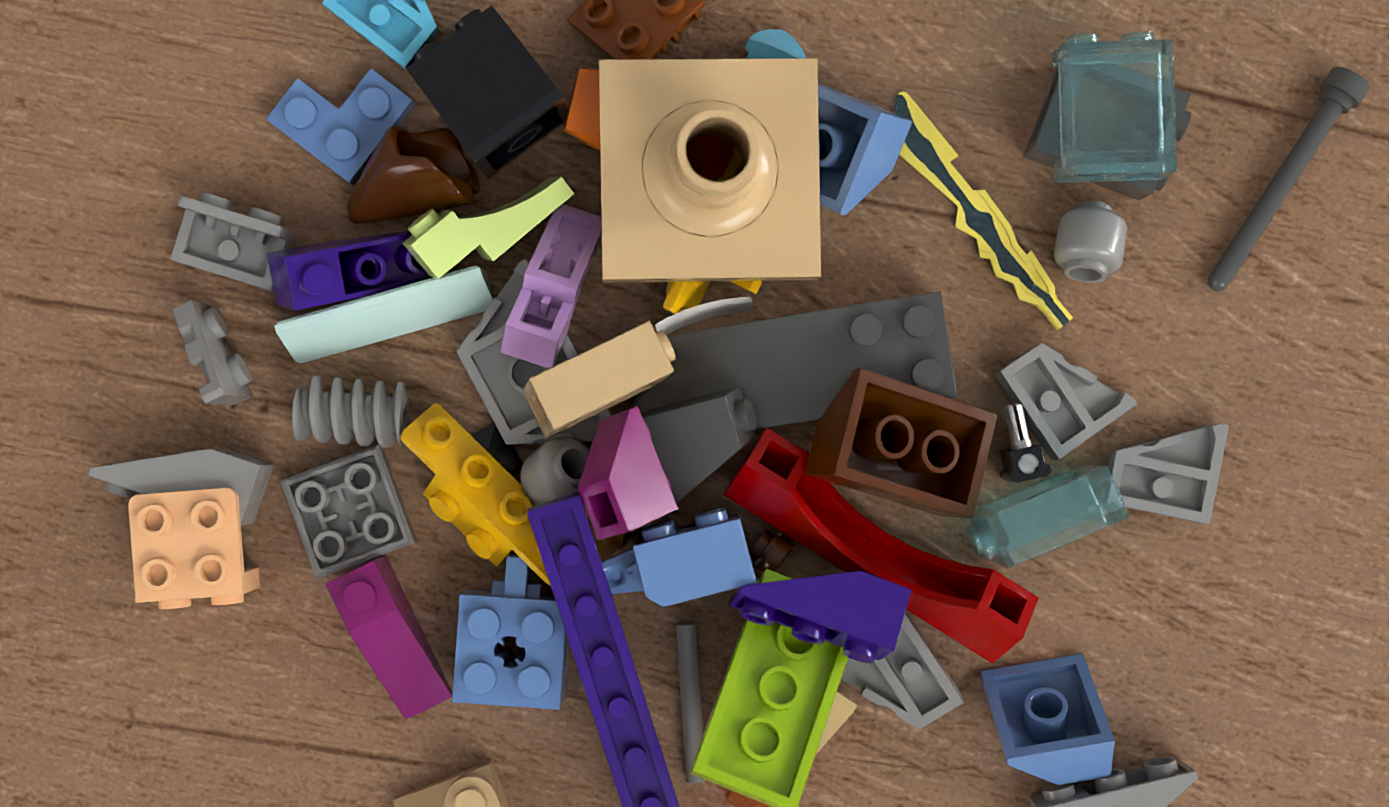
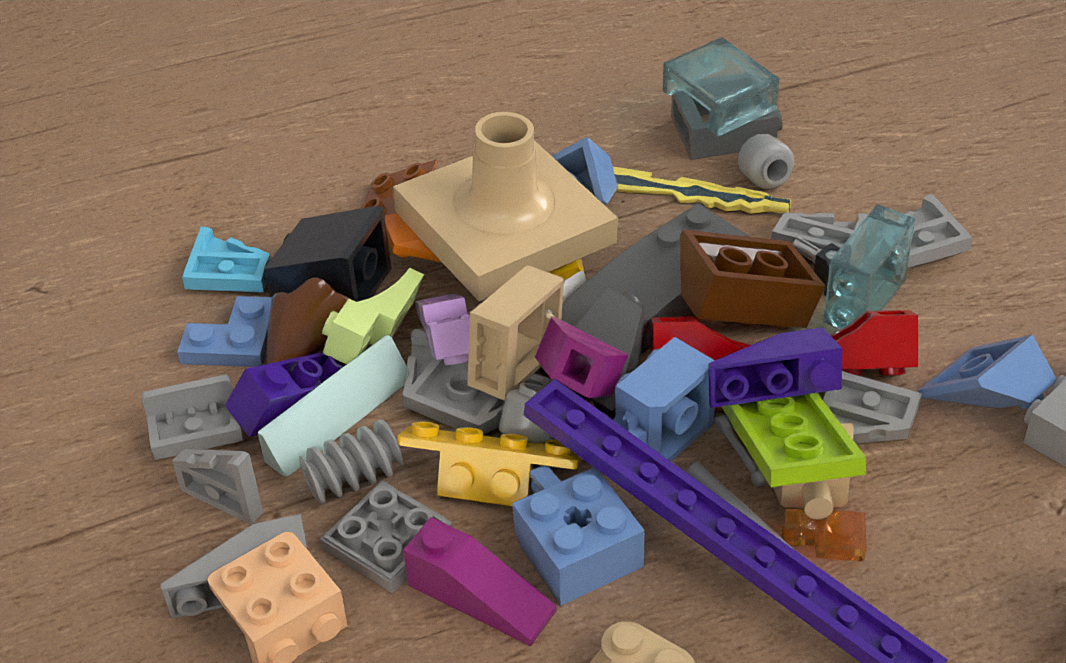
camera: 30 degrees left, 45 degrees down
(1341, 92) = (838, 53): dark grey piece -> none

